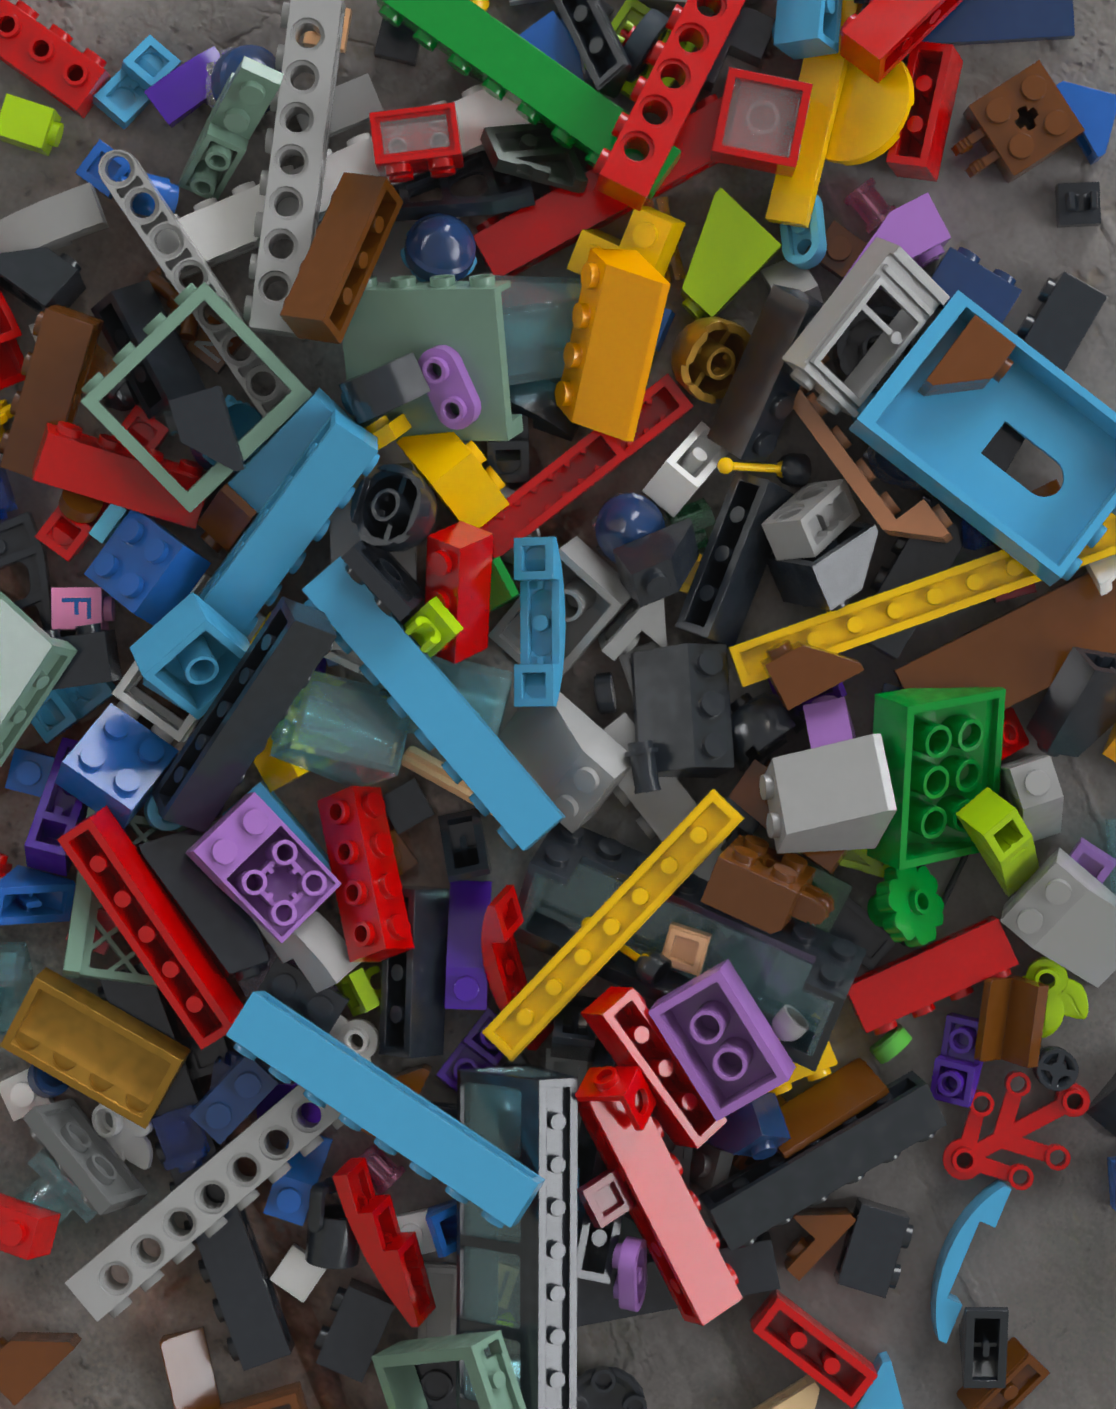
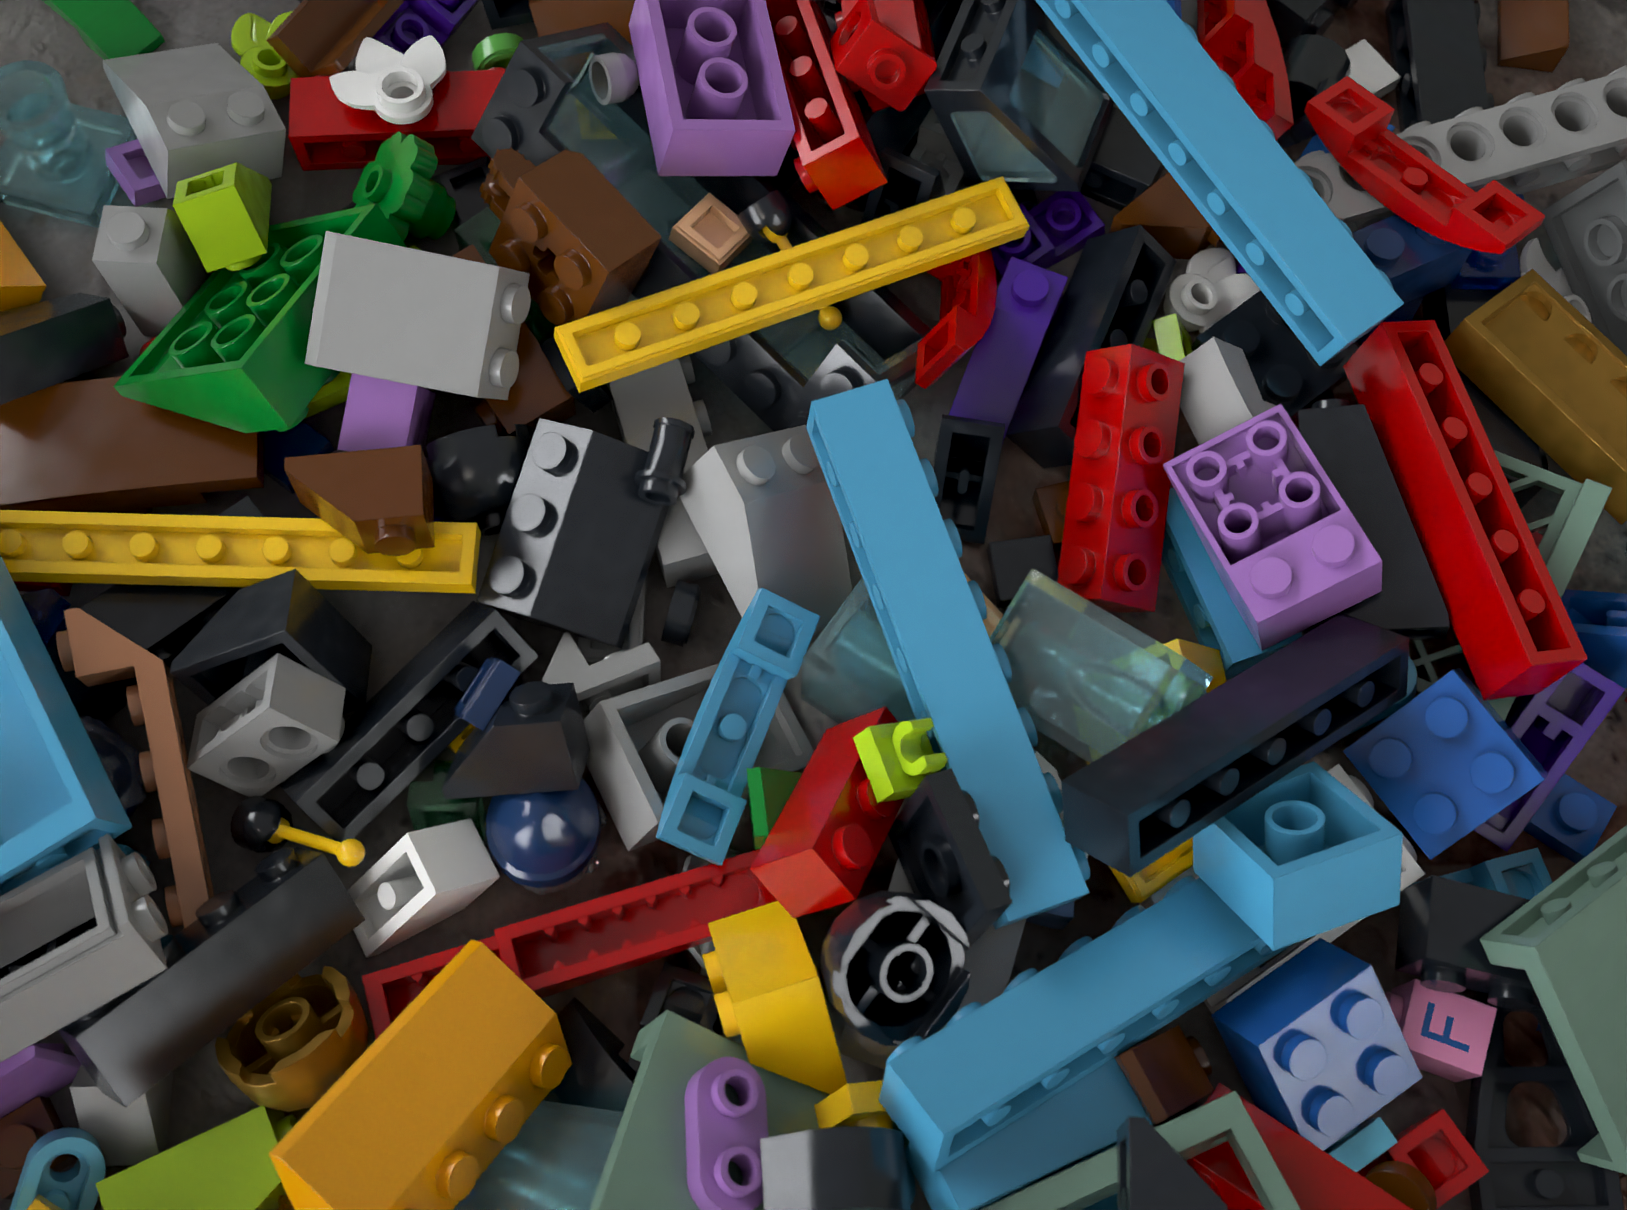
camera: 160 degrees left, 20 degrees down
(244, 1138) = (1409, 183): none -> red slope
(689, 584) = (486, 692): none -> dark blue tile
(950, 988) = (393, 82): none -> white plate

